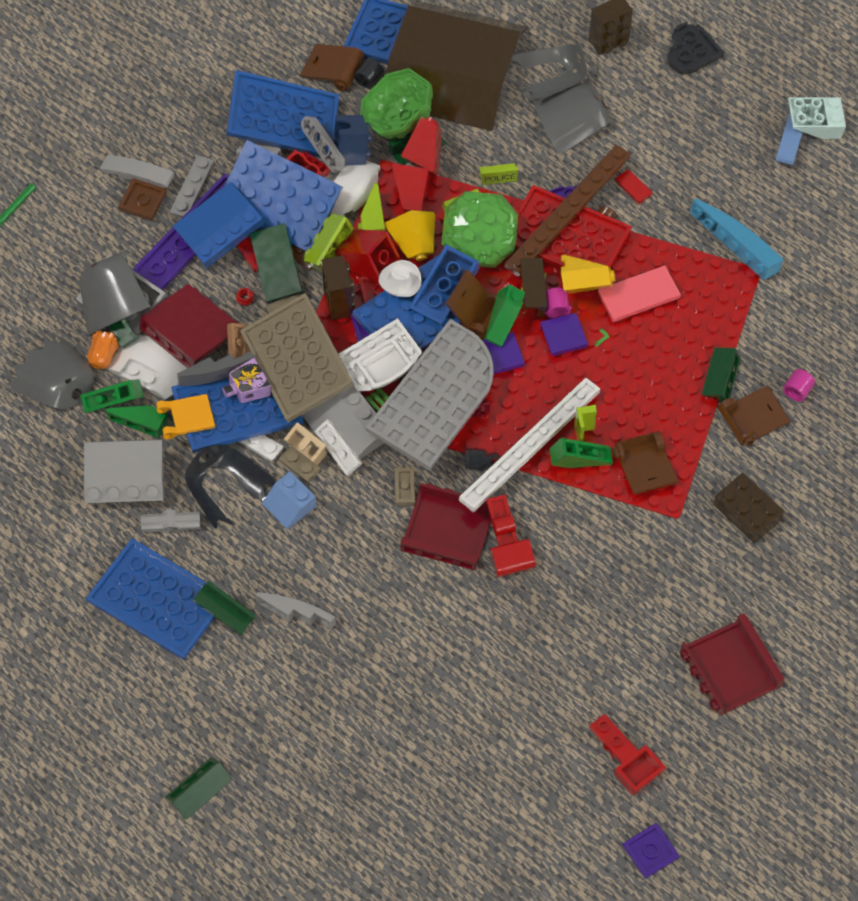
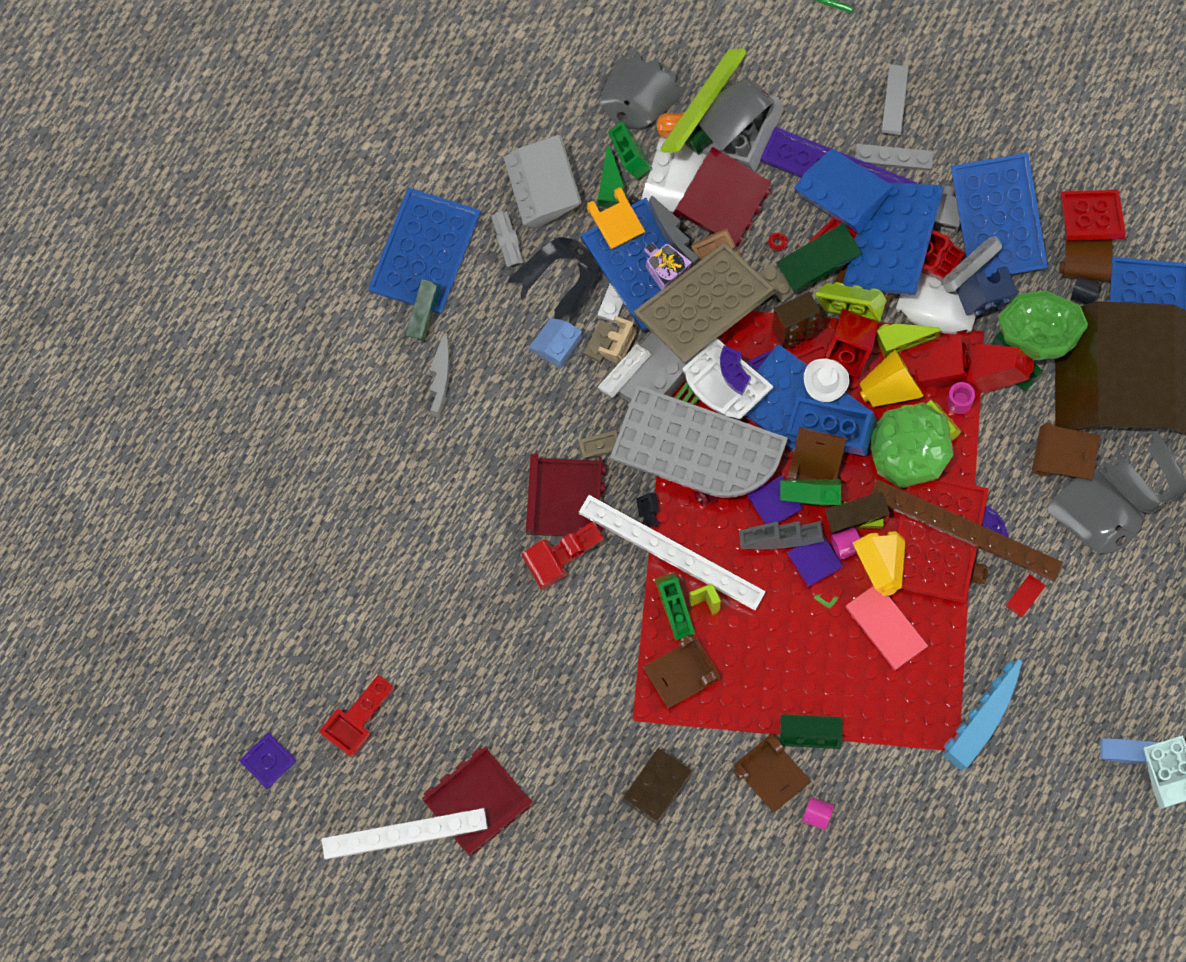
camera: 80 degrees right, 10 degrees up
(90, 315) = (703, 100): none -> lime tile
(142, 199) = (863, 114): reddish brown plate -> none
(198, 788) = (243, 338): dark green panel -> none
(300, 50) = (1092, 215): none -> red plate
(372, 347) = (732, 370): none -> dark purple tile
(443, 185) = (960, 398): none -> dark pink piece
(498, 174) = (999, 452): lime panel -> none
(513, 123) = (1063, 452): none -> reddish brown door
(536, 353) = (784, 536): none -> dark grey slope
(750, 737) = (404, 834): none -> white plate

